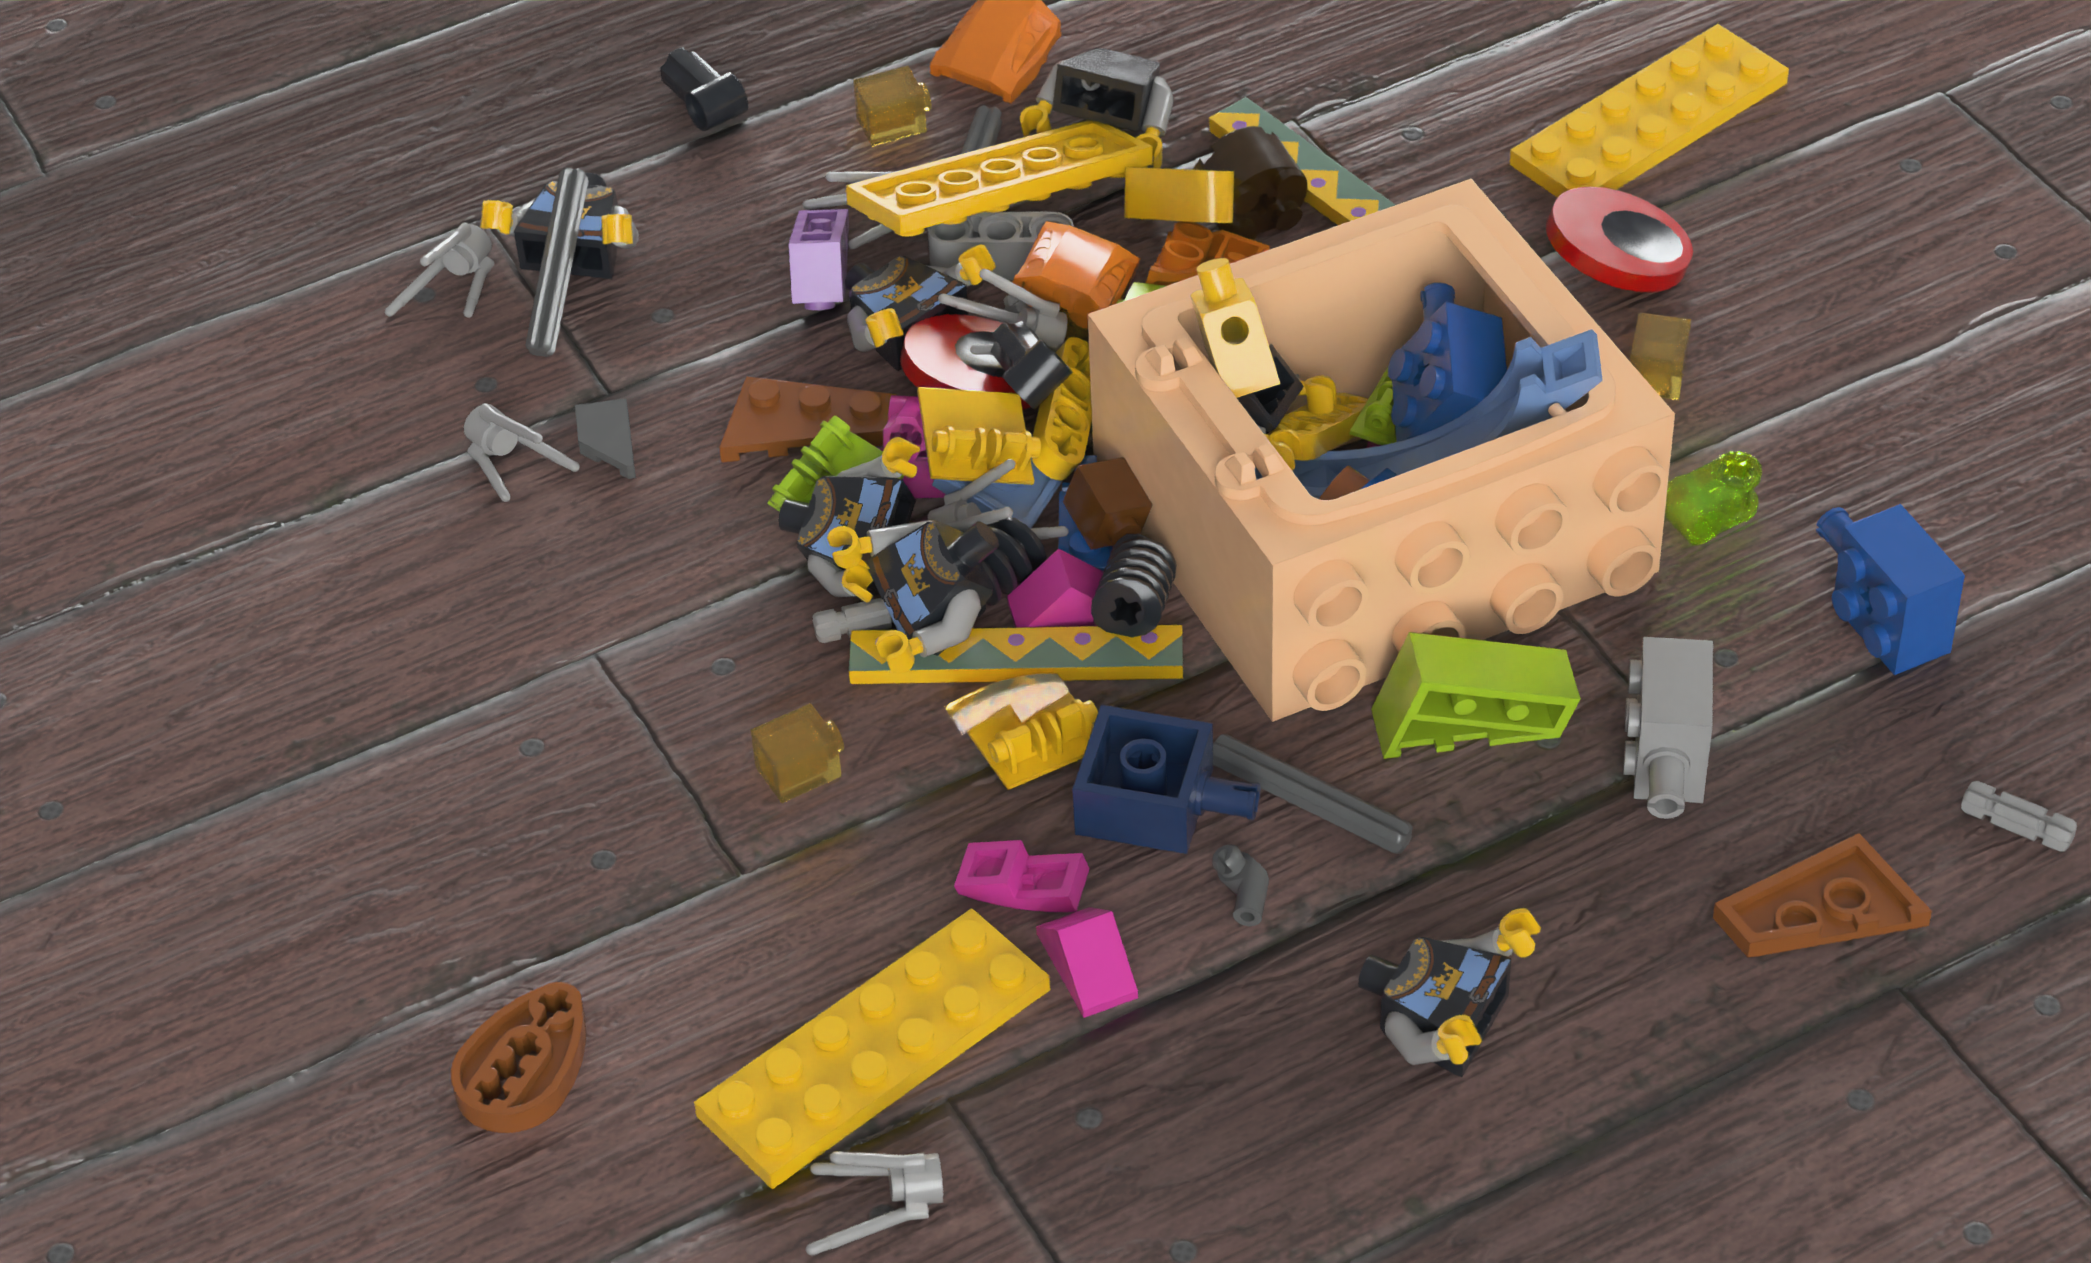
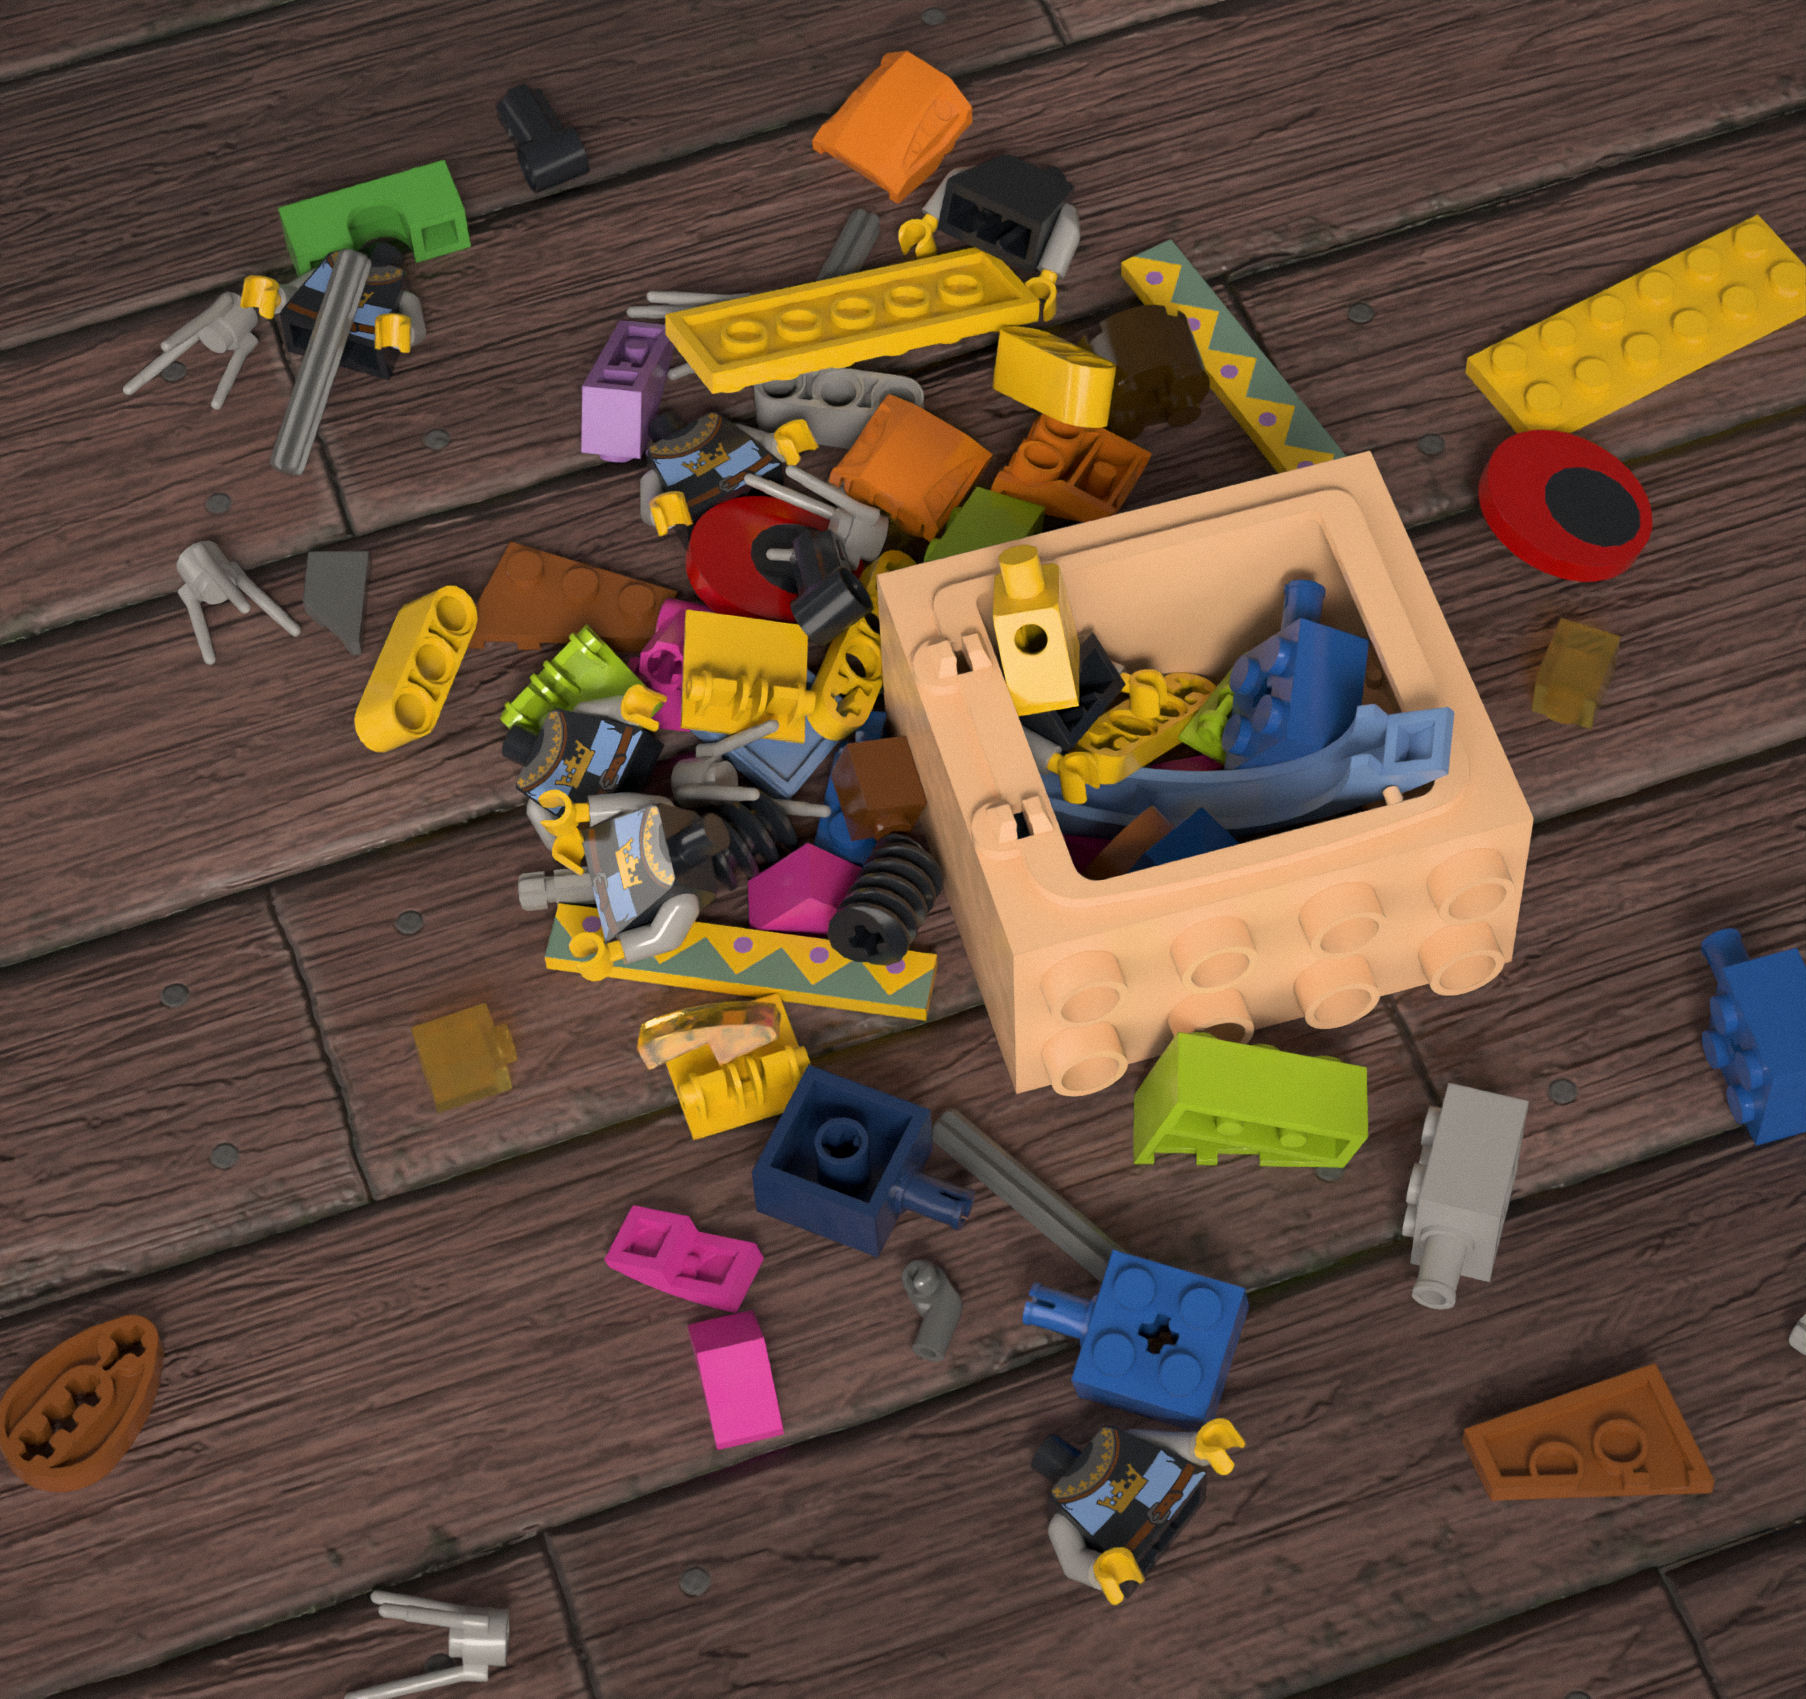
camera: 10 degrees right, 10 degrees up
(608, 146) = (410, 206): none -> bright green arch
(689, 474) = (416, 669): none -> yellow beam
(871, 1047) = (471, 1452): yellow plate -> none
(891, 105) = (753, 193): clear yellow brick -> none
(1409, 868) = (1137, 1304): none -> blue brick
(1714, 497) = (1589, 881): clear neon green piece -> none

